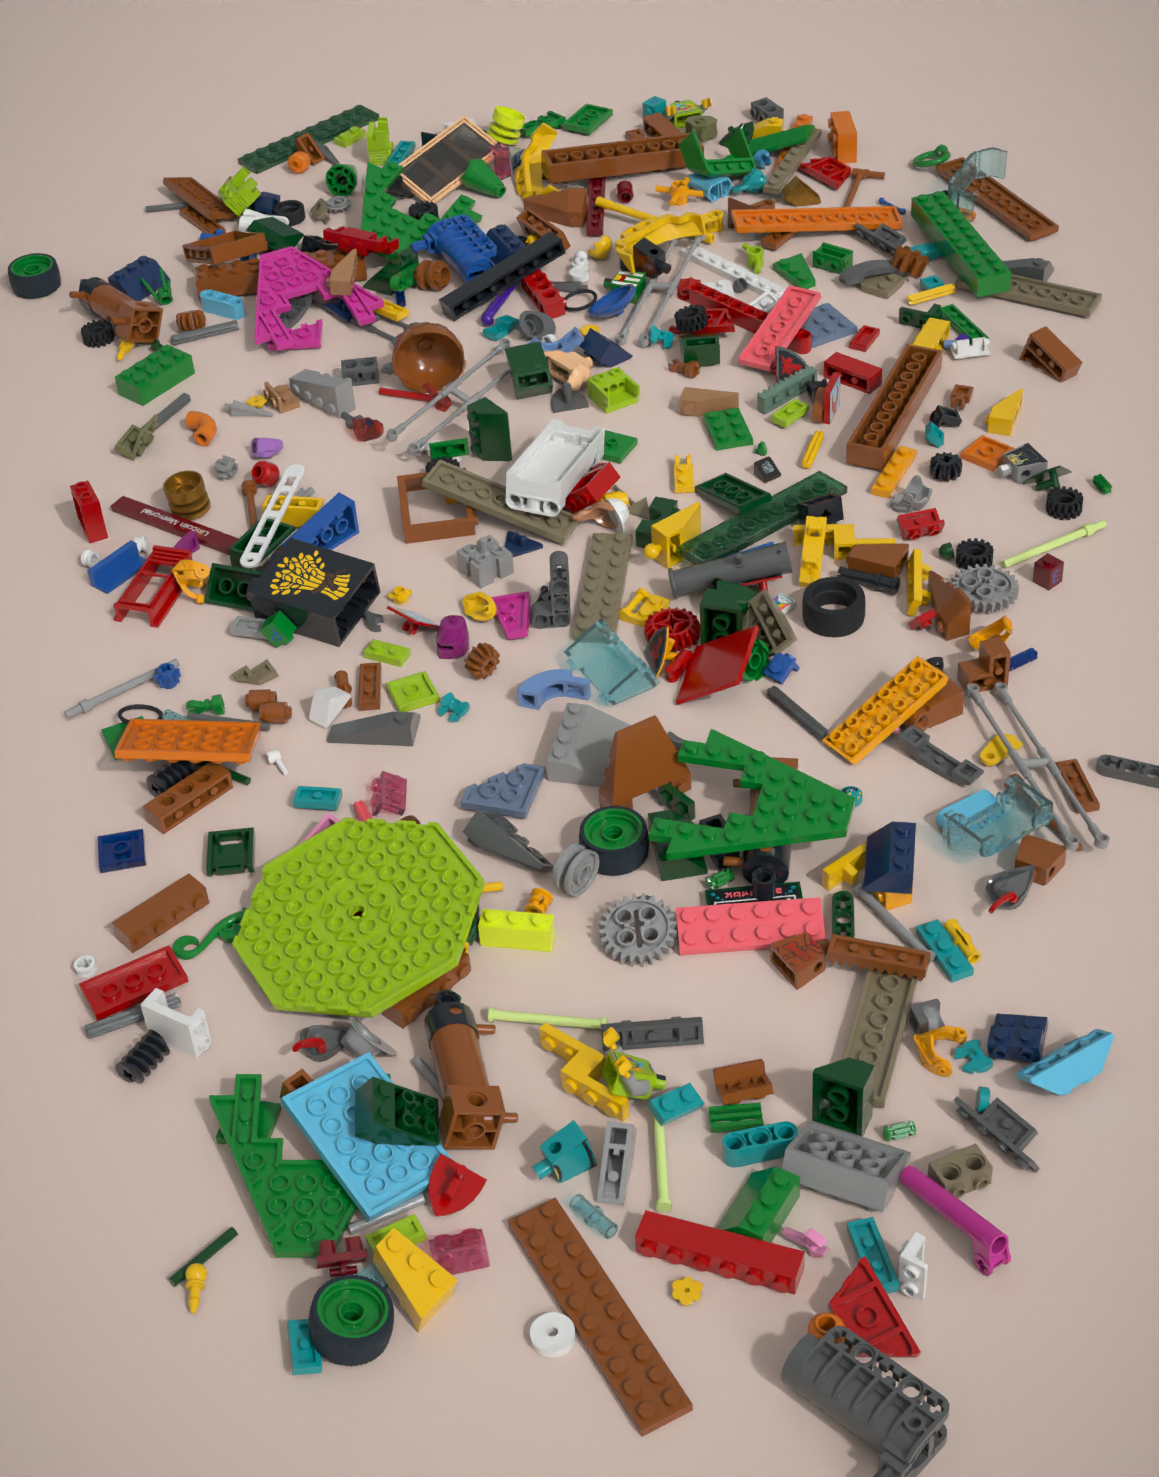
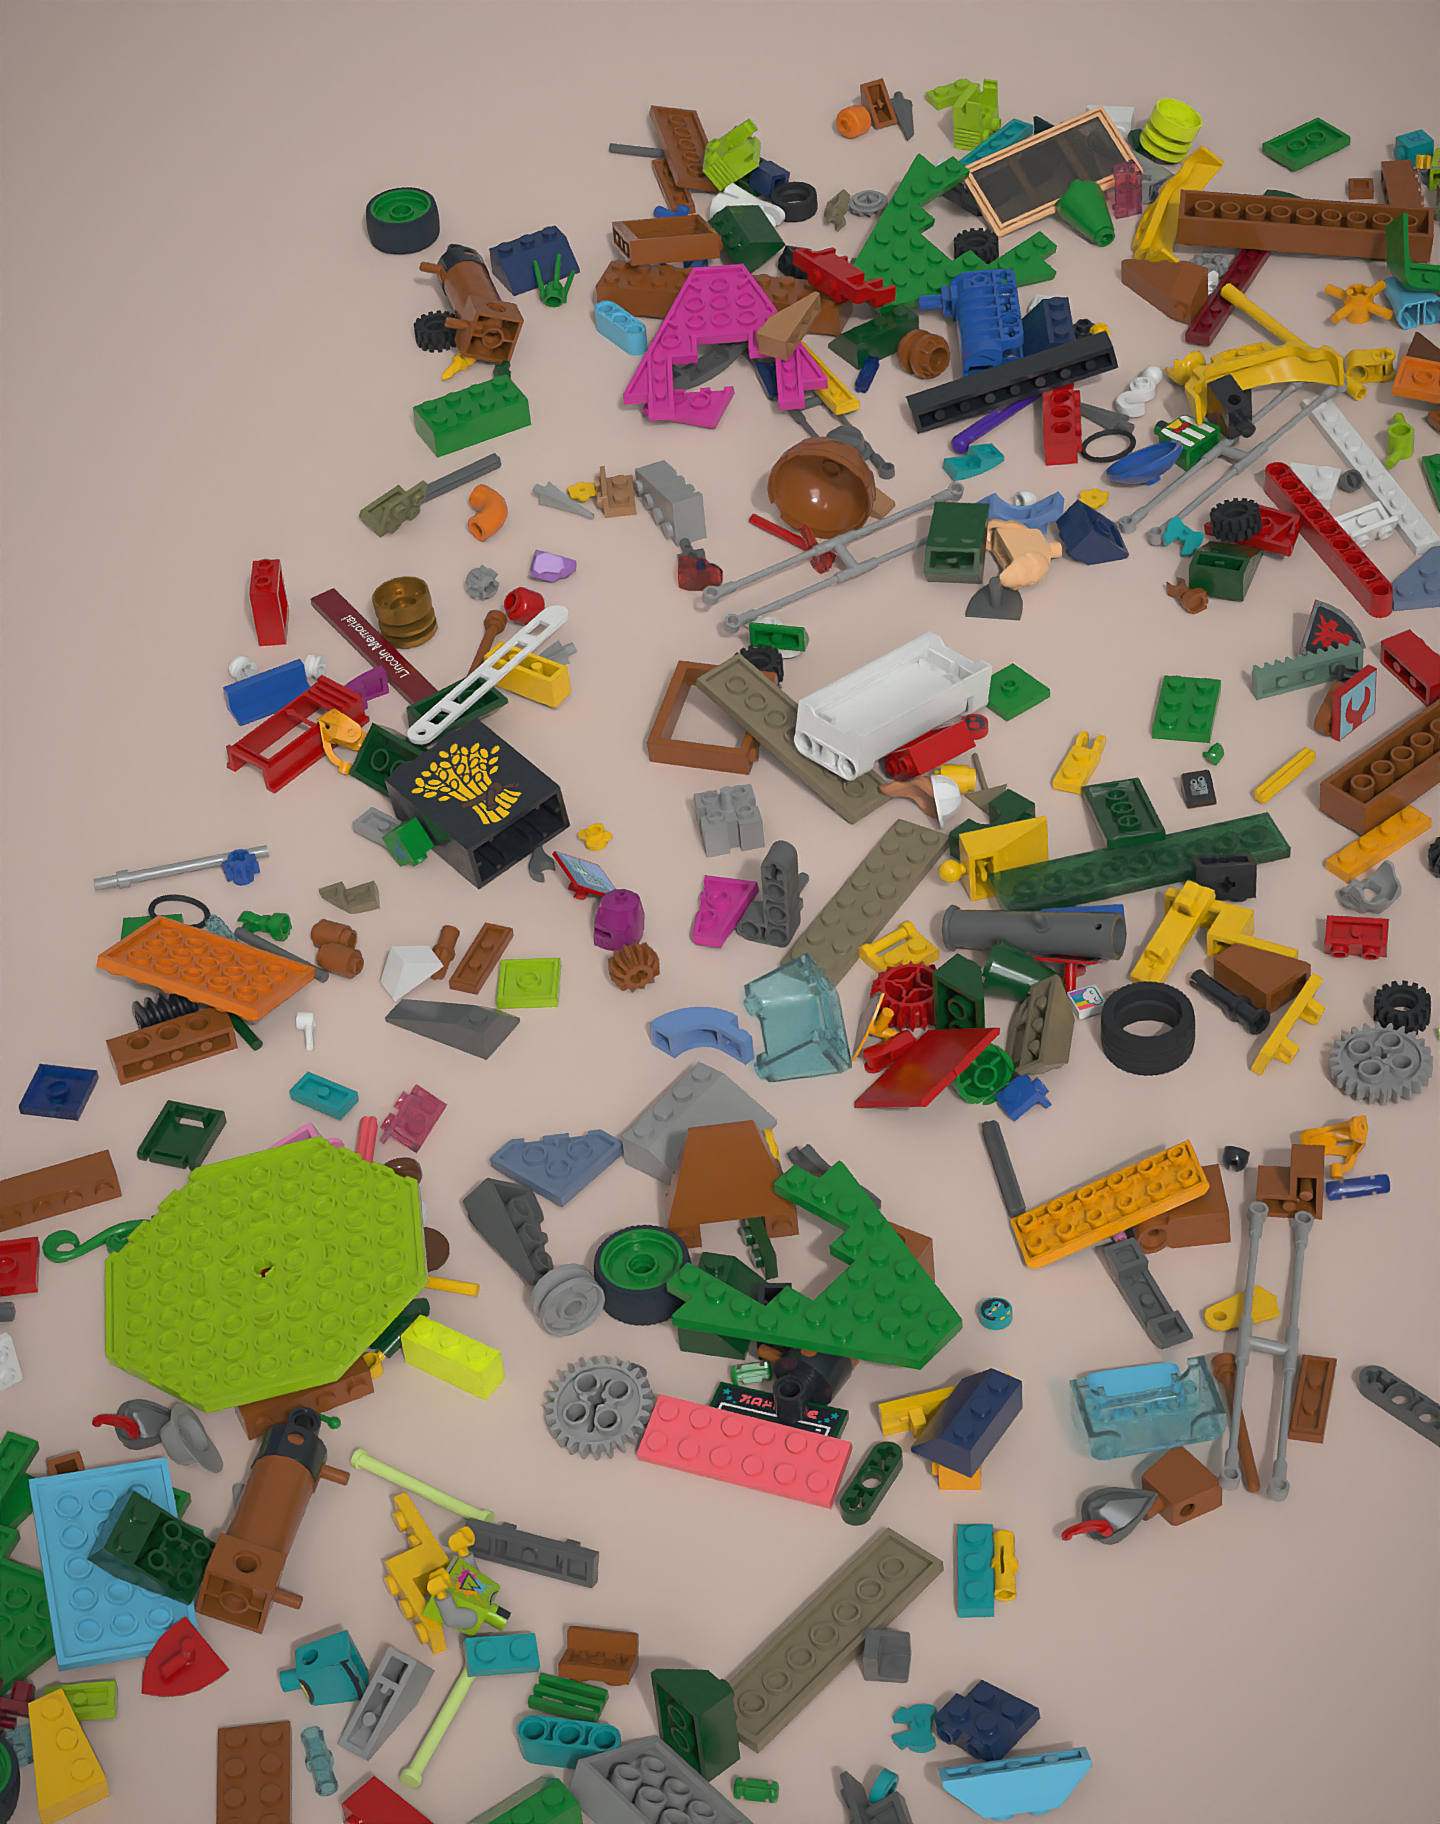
camera: 25 degrees right, 0 degrees up
(190, 320) = (564, 342): dark orange gear -> none
(204, 332) = (576, 365): dark grey axle -> none
(323, 132) = (910, 79): clear green plate -> none
(331, 524) = (550, 713): blue wedge -> none
(341, 179) = (891, 161): green cone -> none
(361, 370) = (739, 482): dark grey brick -> none
(363, 1224) = (120, 1667): light grey bar -> none
(387, 653) = (530, 916): lime plate -> none
(403, 279) = (870, 348): green beam -> none
(458, 708) = (564, 1015): teal piece -> none
(460, 1251) = (139, 1747): clear pink bracket -> none
(479, 606) = (682, 885): yellow arm -> none
(489, 431) = (838, 624): dark green slope -> none
(520, 544) = (794, 807): dark blue piece -> none
(535, 324) = (1018, 471): dark grey piece -> none
(536, 901) = (512, 1326): light orange bush -> none
(538, 226) = (1119, 322): dark orange brick -> none
(552, 119) = (1233, 139): green wing -> none
(612, 390) = (1060, 604): lime piece -> none
(625, 191) = (1282, 282): dark red brick -> none
(683, 288) = (1276, 455): red piece -> none
(699, 401) = (1172, 656): medium nougat slope -> none
(779, 327) = (1349, 567): coral plate -> none
(790, 413) = (1288, 709): lime plate -> none
(799, 958) = (780, 1516): dark orange torso -> none
(878, 956) = (870, 1549): dark orange gear -> none
(890, 920) = (947, 1571): light grey bar -> none
(923, 620) = (1261, 1086): red plate -> none
(927, 1054) = (864, 1682): light orange helmet -> none
(946, 551) = (1367, 989): dark green hinge -> none
(951, 607) = (1302, 1082): dark orange wedge -> none

